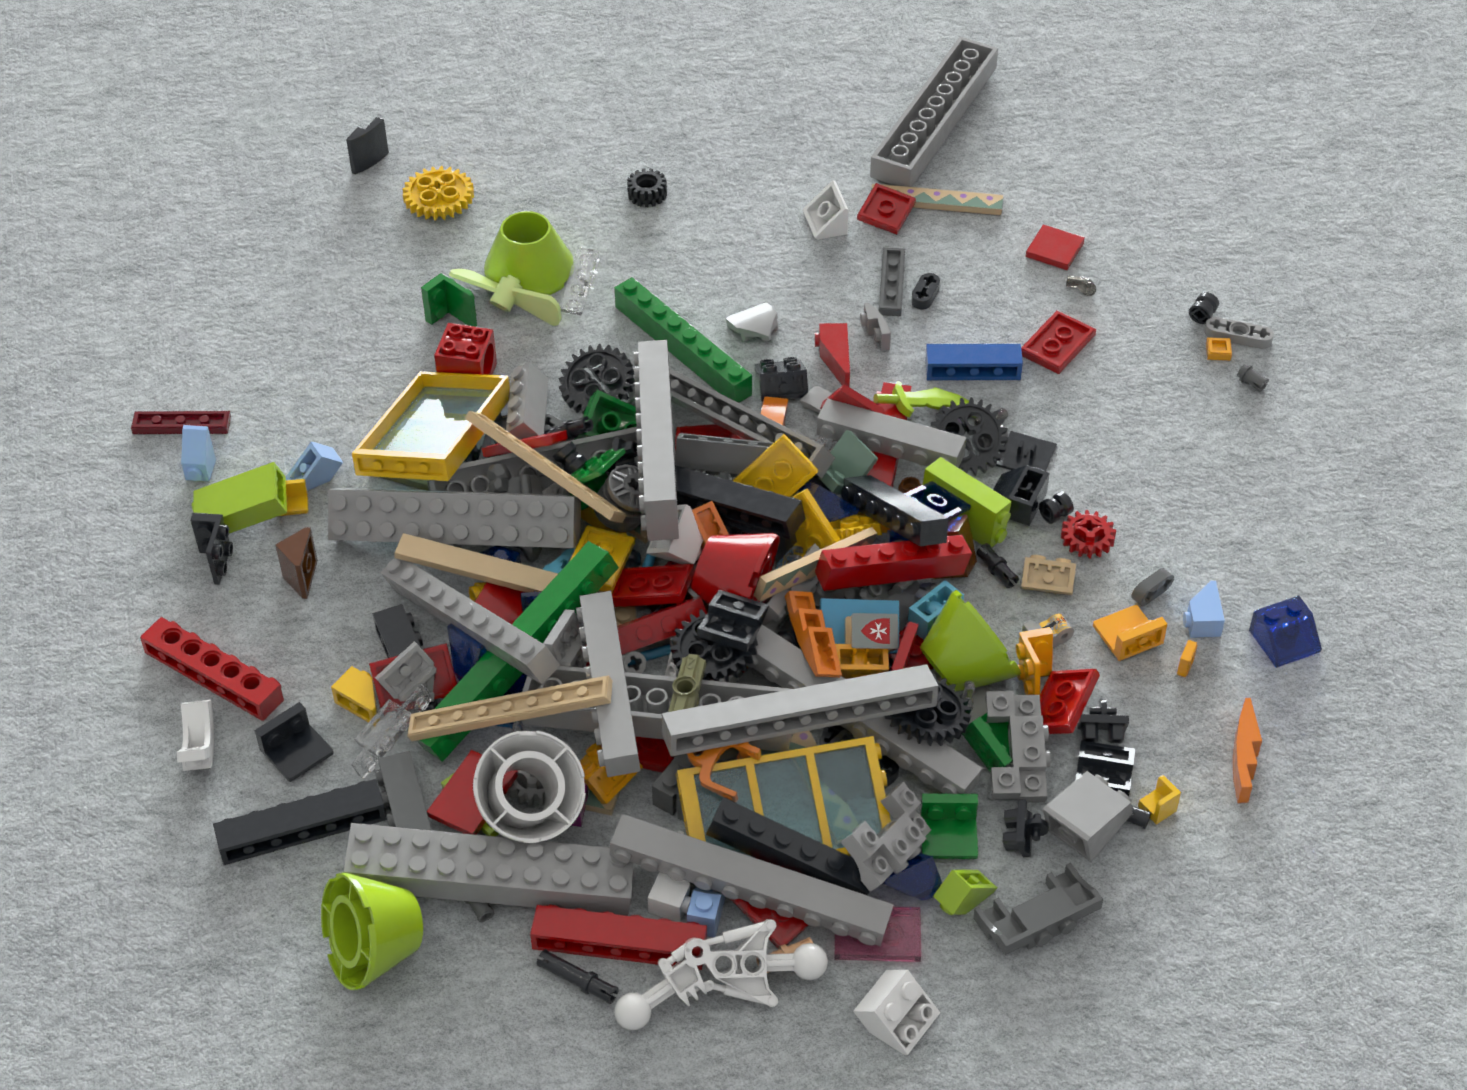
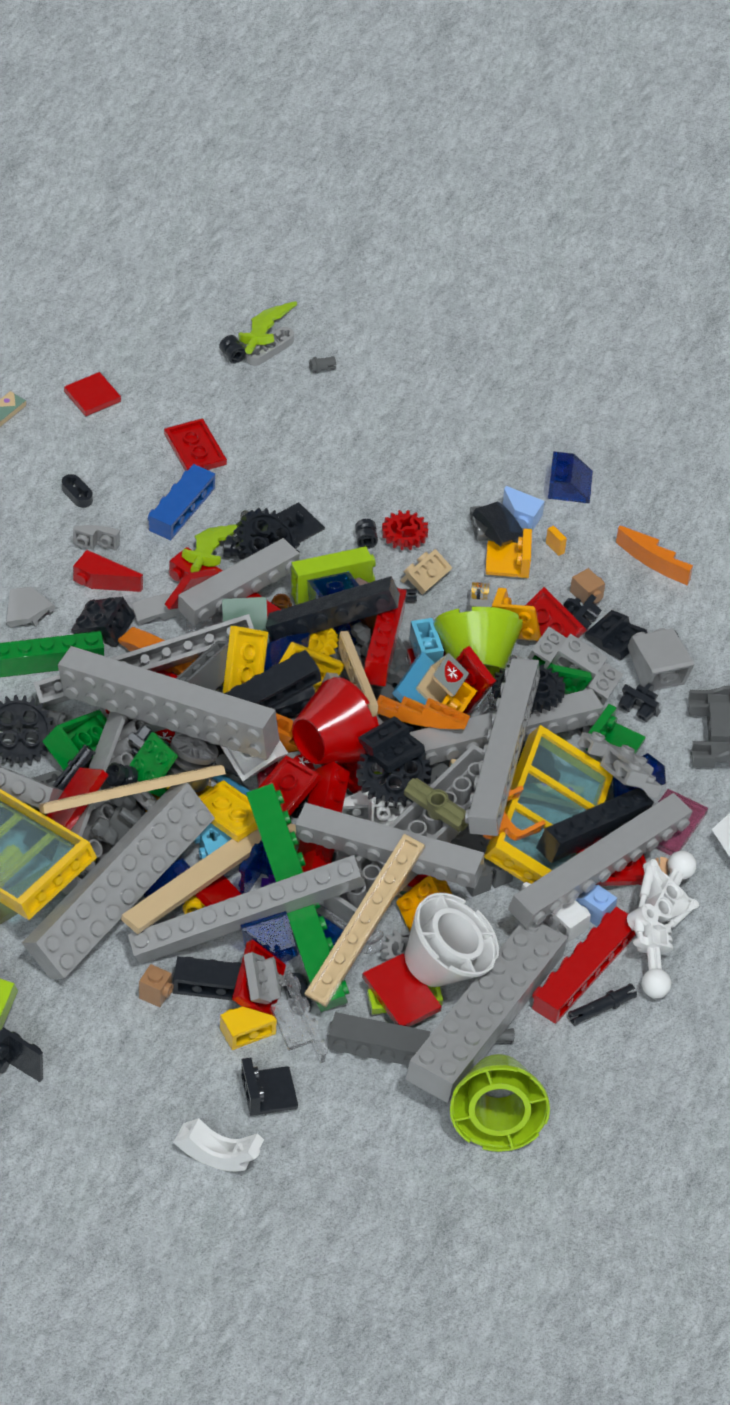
camera: 65 degrees left, 0 degrees up
(212, 668) = (136, 1123): red brick -> none
(298, 560) = (82, 1006): reddish brown slope -> none
(299, 821) = (348, 1114): black brick -> none
(362, 605) = (155, 985): none -> medium nougat brick
(565, 641) = (318, 852): light grey slope -> none
(892, 281) = (47, 504): dark grey tile -> none
(963, 891) = (674, 757): lime slope -> none
(1025, 490) = (337, 537): black slope -> none
(1084, 284) = (148, 399): clear smoke arm -> none
(1145, 713) = (587, 583): none -> medium nougat brick
(1160, 596) = (500, 522): none -> black slope
(1161, 801) = (665, 615): yellow panel -> none
(1218, 349) = (276, 365): light orange tile -> none
(1237, 317) = (261, 324): none -> lime sword

